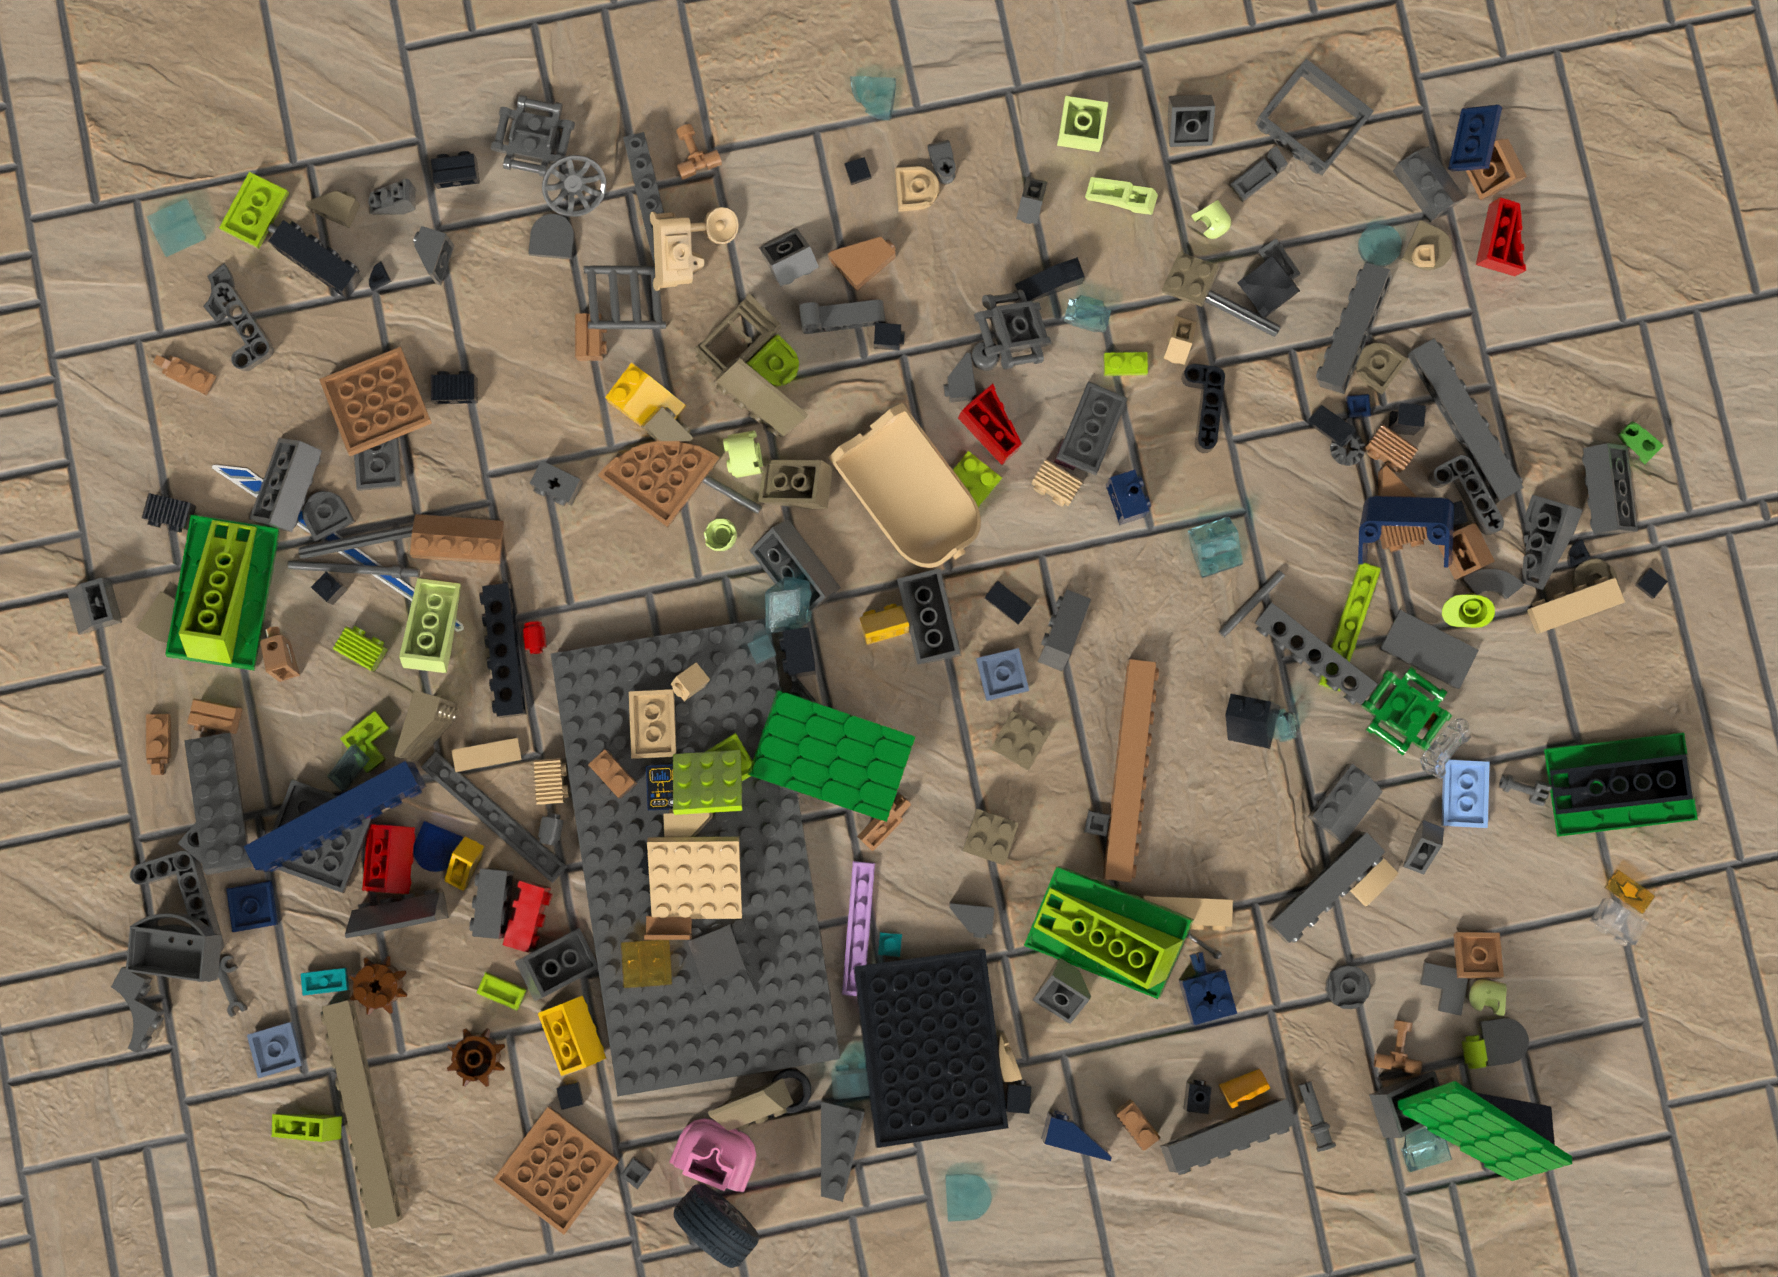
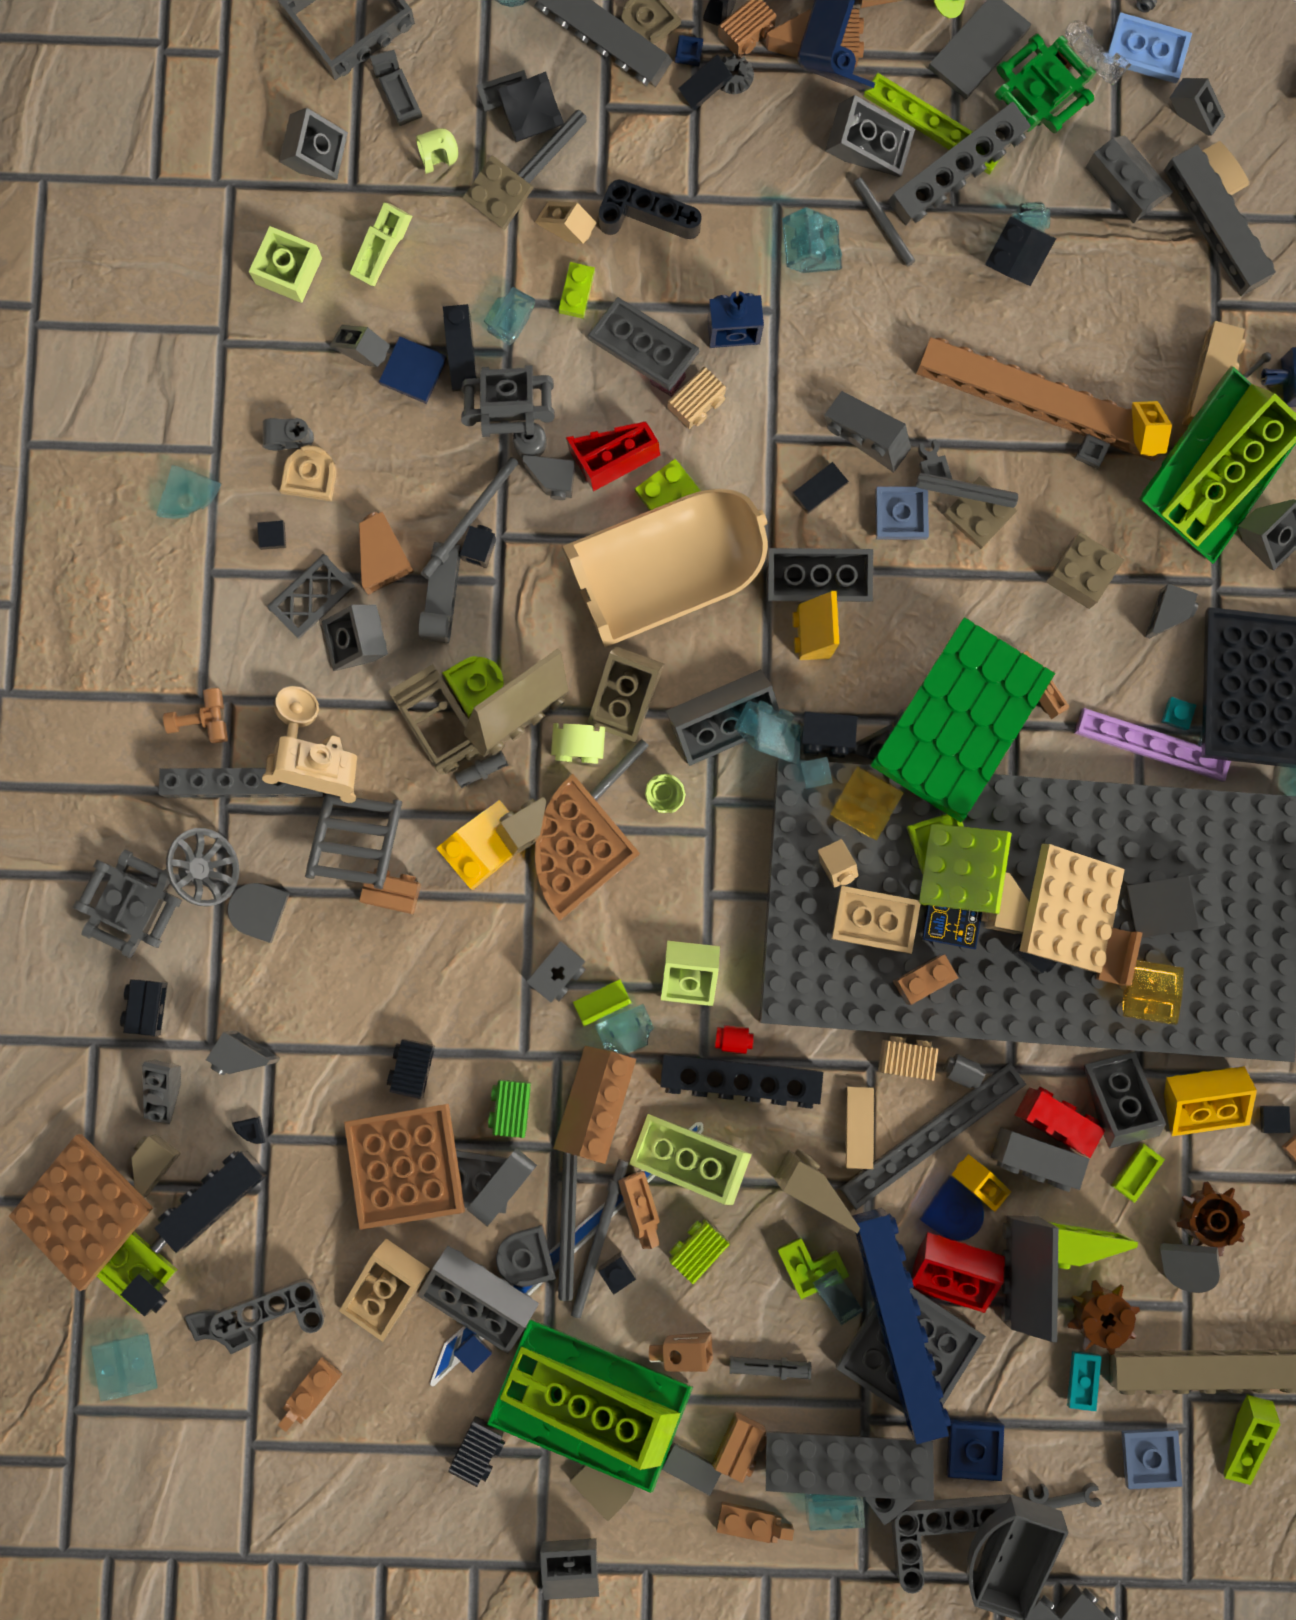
camera: 80 degrees left, 0 degrees up
(179, 801) = (834, 1512): none -> clear light blue brick
(190, 683) = (691, 1469): none -> dark grey tile
(234, 228) = (146, 1293): none -> black brick
(244, 491) = (472, 1352): none -> dark blue tile
(277, 410) = (384, 1289): none -> tan slope
(282, 736) = (769, 1367): none -> dark grey pin
(286, 163) = (80, 1212): none -> medium nougat plate
(375, 480) = (501, 1187): none -> dark grey beam
(384, 594) = (640, 1208): none -> medium nougat hinge
(431, 951) = (1086, 1245): none -> lime slope
(433, 1047) = (1191, 1266): none -> dark grey tile
(440, 473) = (510, 1109): none -> bright green brick
(522, 549) = (626, 1030): none -> clear light blue slope
(540, 526) = (602, 1002): none -> lime panel
(580, 589) = (690, 973): none -> yellowish green slope
(705, 384) = (481, 769): none -> dark grey pin
(747, 695) = (866, 803): none -> clear yellow slope
(815, 231) = (313, 617): none -> dark grey window
(869, 307) = (441, 553): none -> dark grey bar
(1023, 248) = (413, 370): none -> dark blue tile
(1032, 714) = (967, 490): none -> dark grey axle
(1047, 693) = (933, 464): none -> dark grey plate
(1122, 861) = (1150, 428): none -> yellow slope
(1320, 574) = (869, 137): none -> dark grey slope

